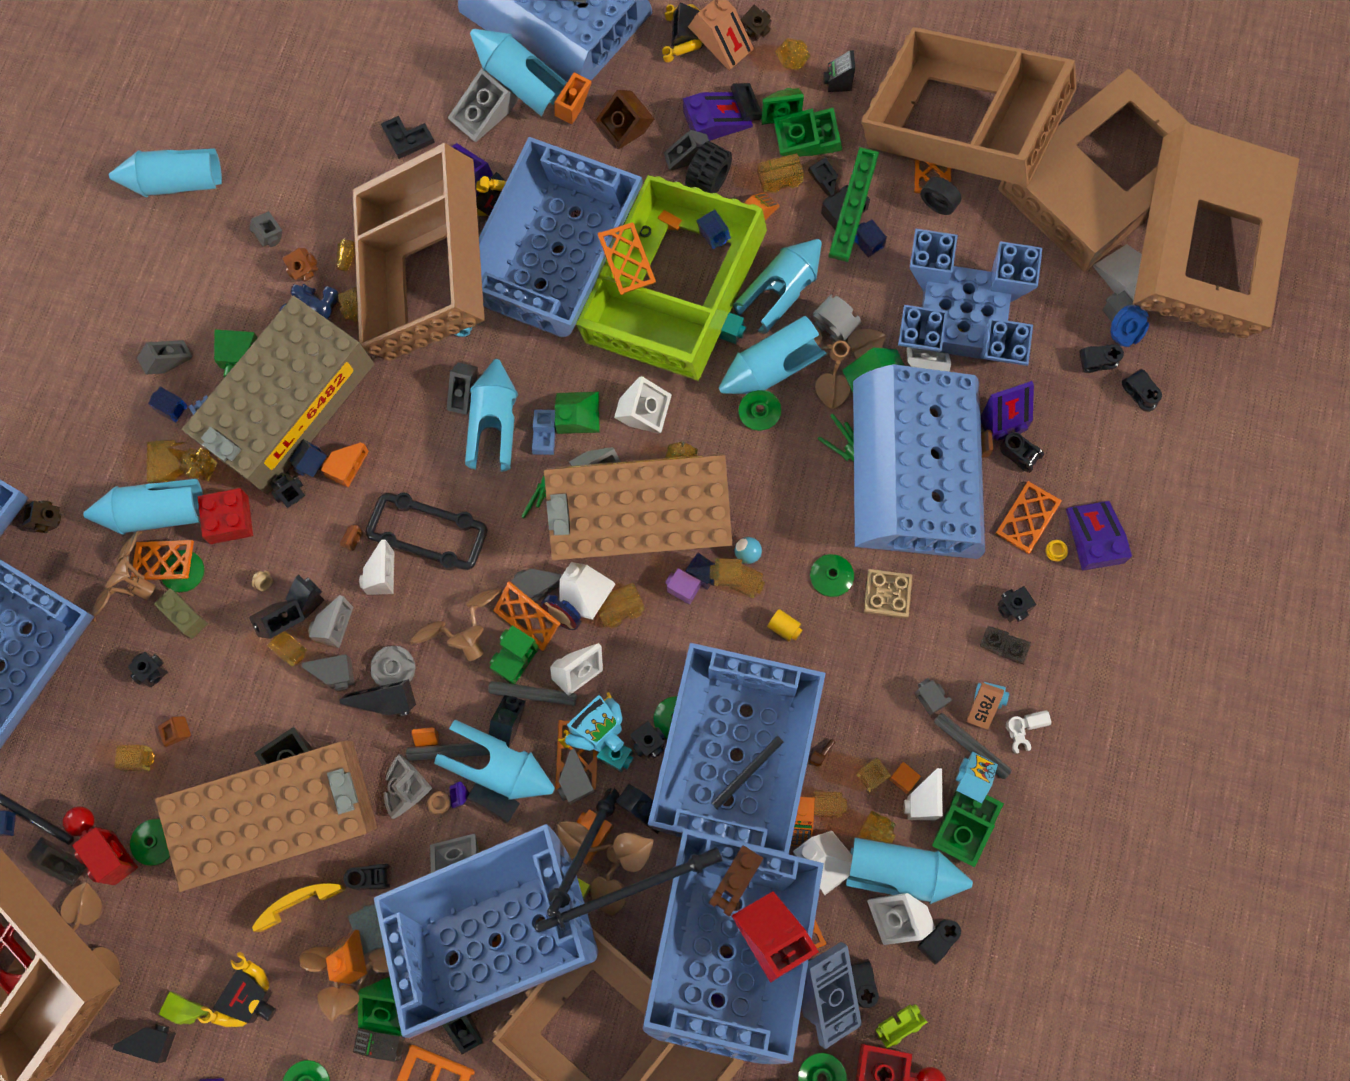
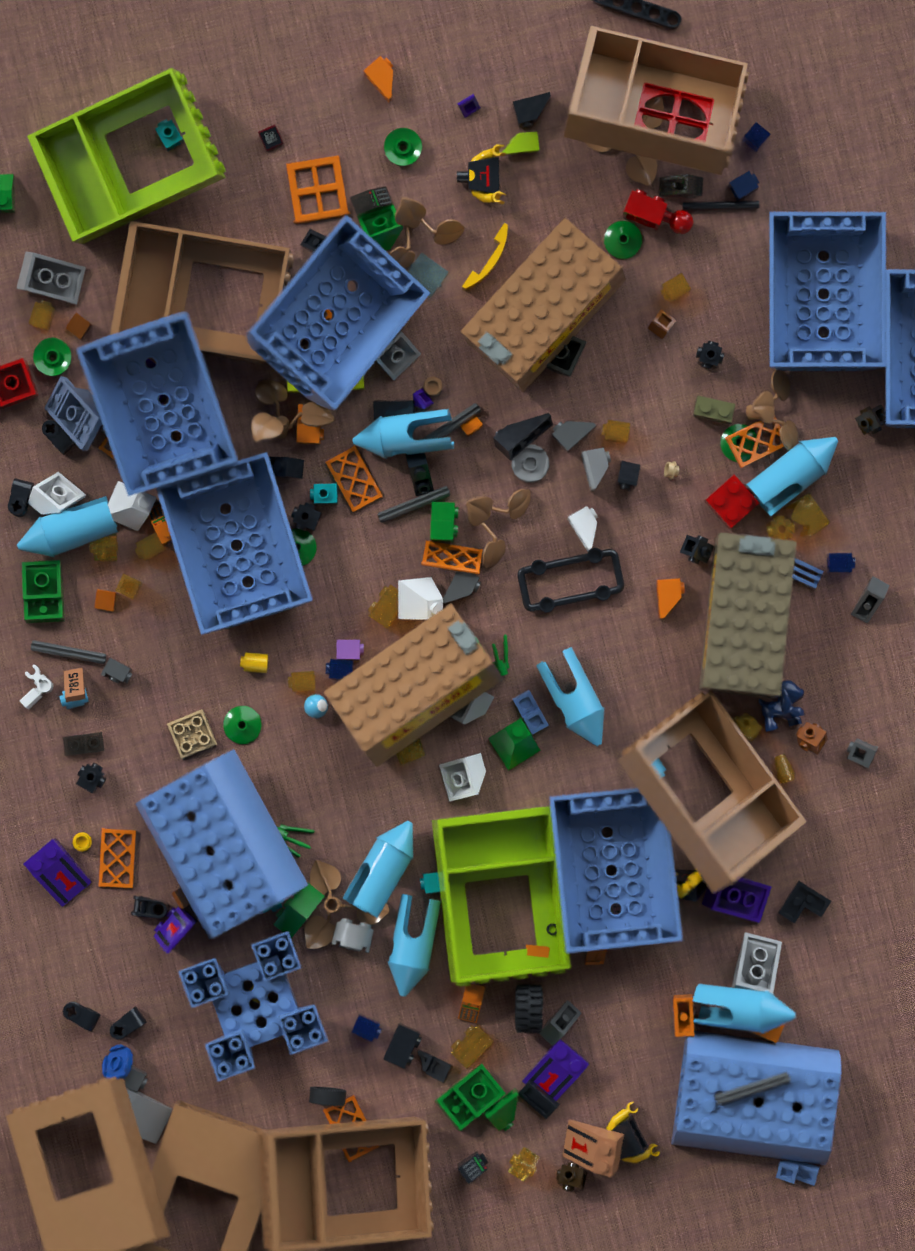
camera: 150 degrees right, 15 degrees up
(230, 347) = (816, 635): green torso -> none
(271, 622) = (636, 445): black torso -> none
(307, 458) = (697, 582): dark blue brick -> none
(347, 959) = (427, 243): orange slope -> none
(351, 537) = (626, 542): dark orange slope -> none
(372, 877) = (448, 306): black piece -> none
(404, 787) = (465, 383): light grey brick -> none
(460, 382) = (616, 710): dark grey slope -> none
(559, 896) = (307, 451): black bar -> none
(562, 611) = (424, 574): tile -> none
(574, 780) = (342, 457): dark grey slope -> none
(577, 668) = (390, 539): white slope -> none
(595, 726) = (348, 504): medium azure torso -> none
(624, 118) = (630, 1023): reddish brown slope -> none
(636, 244) = (554, 873): orange window -> none
(695, 863) = (214, 440): black bar -> none
(713, 229) = (482, 940): clear blue brick -> none
(726, 572) = (319, 674): clear yellow brick -> none
(736, 880) = (180, 446): reddish brown plate -> none
(746, 773) = (216, 528): black bar -> none
(759, 419) = (370, 824): green dish -> none
(774, 936) = (133, 423): red slope -> none
(818, 758) = (175, 577): reddish brown hand -> none
(853, 204) = (393, 1045): green tile -> none
(910, 1021) = (12, 429): lime hinge -> none
(926, 799) = (82, 590): white slope -> none
(928, 359) = (251, 932): white slope -> none
(976, 777) = (53, 626): medium azure brick -> none

